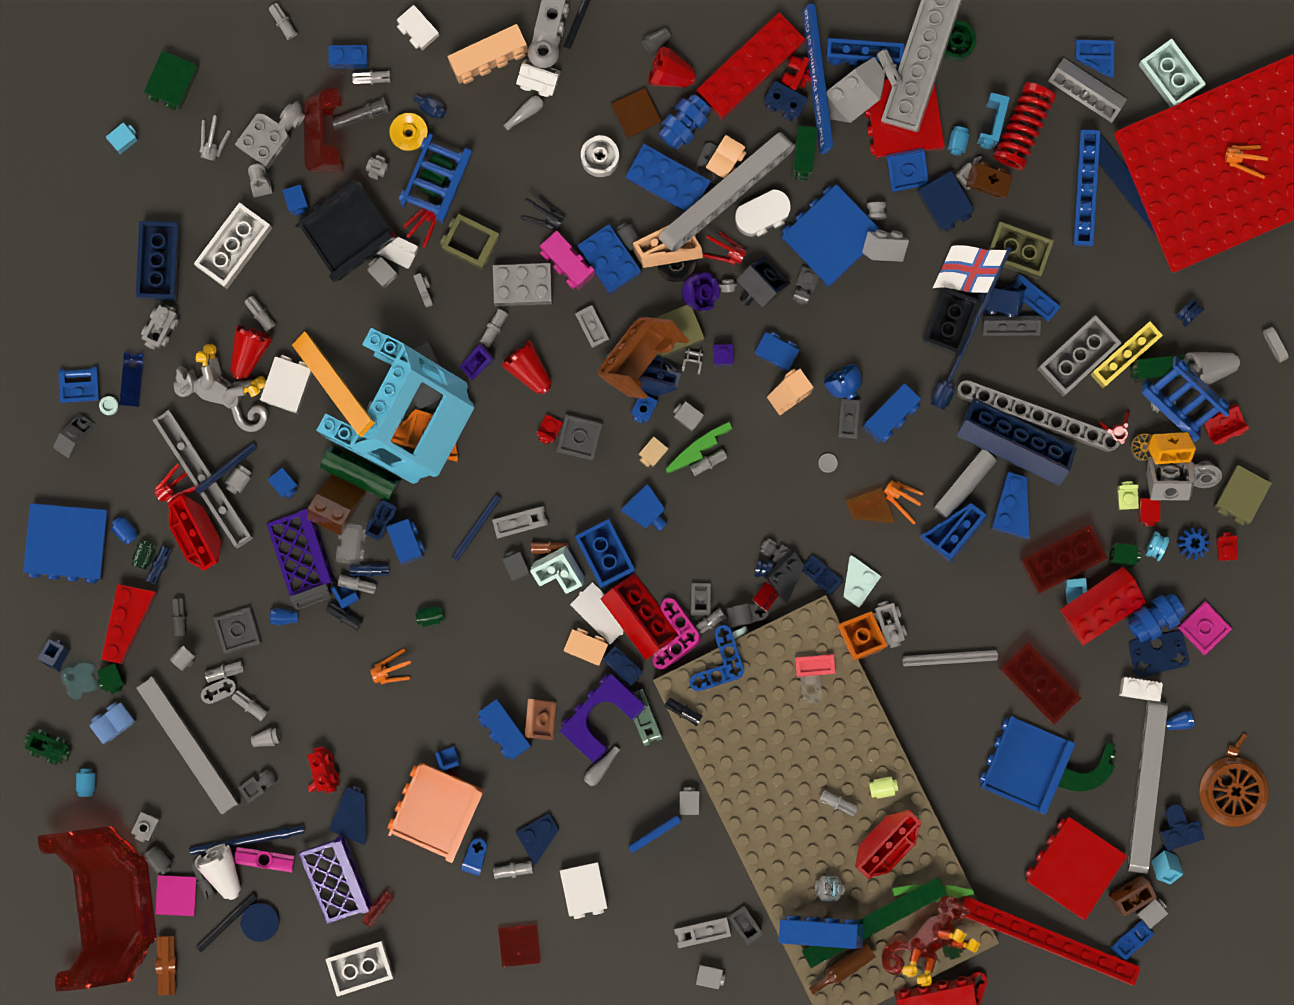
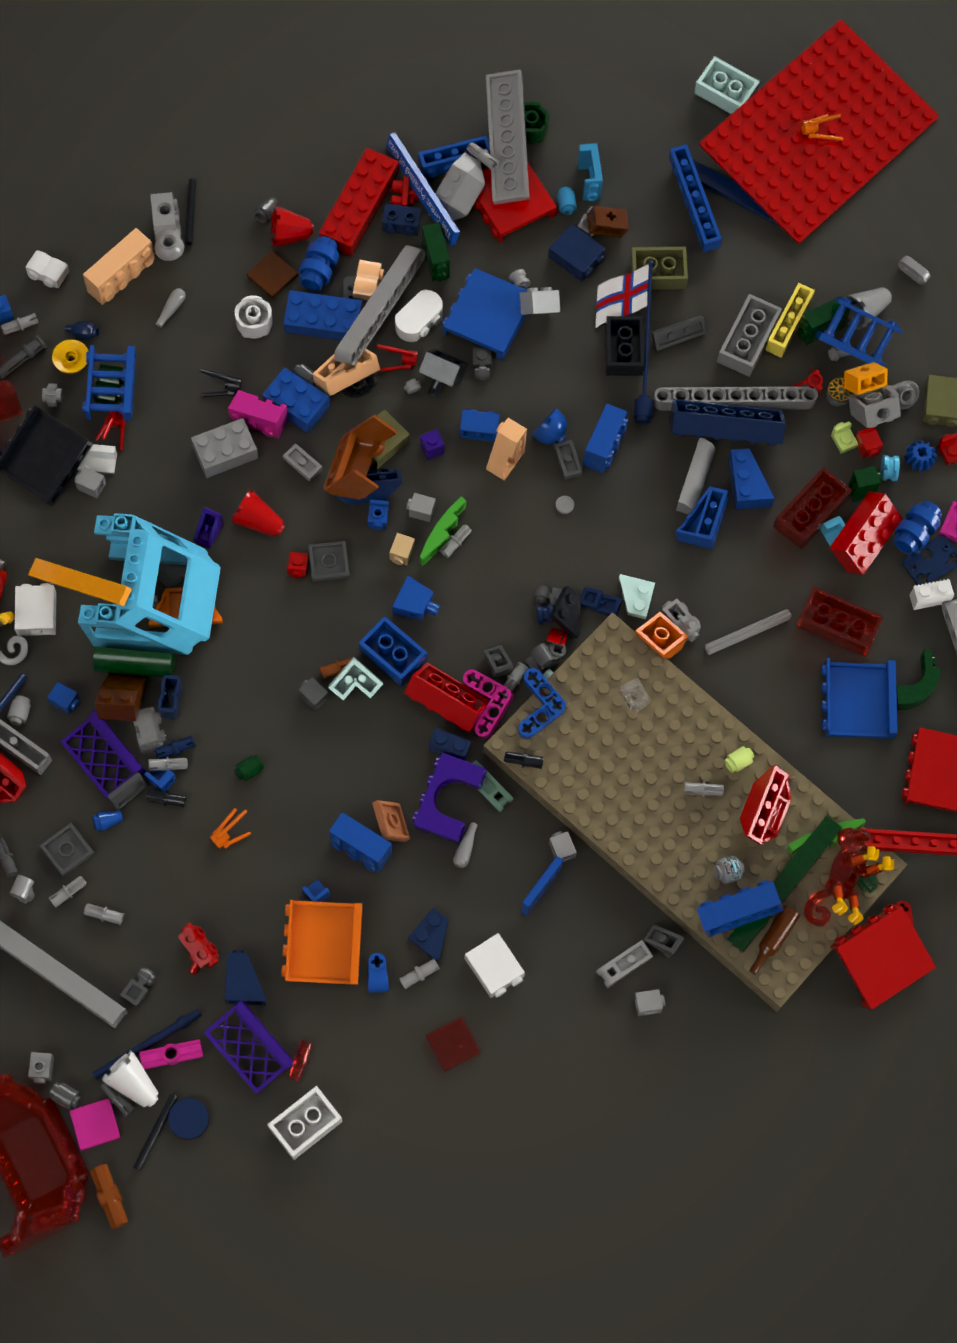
camera: 25 degrees left, 15 degrees down
(216, 687) = (65, 908): light grey beam -> none
(269, 737) = (132, 937): light grey cone -> none
(405, 541) = (200, 706): blue brick -> none
(422, 285) = (132, 482): light grey plate -> none
(475, 529) = (262, 675): dark blue bar -> none
(487, 250) = (162, 443): olive window -> none
(493, 328) = (212, 493): light grey pin -> none
(519, 522) = (302, 654): light grey plate -> none
(538, 79) = (172, 272): white brick -> none
(586, 647) = (408, 742): light nougat brick -> none
(596, 614) = (407, 711): white piece -> none
(693, 360) = (412, 459): light grey piece -> none
(700, 291) = (389, 396): dark purple cylinder -> none
(815, 665) = (628, 673): coral tile -> none
(870, 507) = (620, 527): clear orange wing -> none
(896, 489) = (635, 505): orange plant -> none
(907, 169) = (532, 237): blue tile -> none
(1001, 152) = (609, 182): red piece -> none
(1004, 300) = (664, 311): dark blue brick -> none
(1036, 299) = (687, 304): blue plate -> none
(1087, 90) = (660, 125): light grey brick -> none
(1096, 55) = (655, 96): blue wing -> none
(1189, 312) = (828, 268): dark blue wheel -> none
(1222, 428) = (901, 348): red bracket -> none

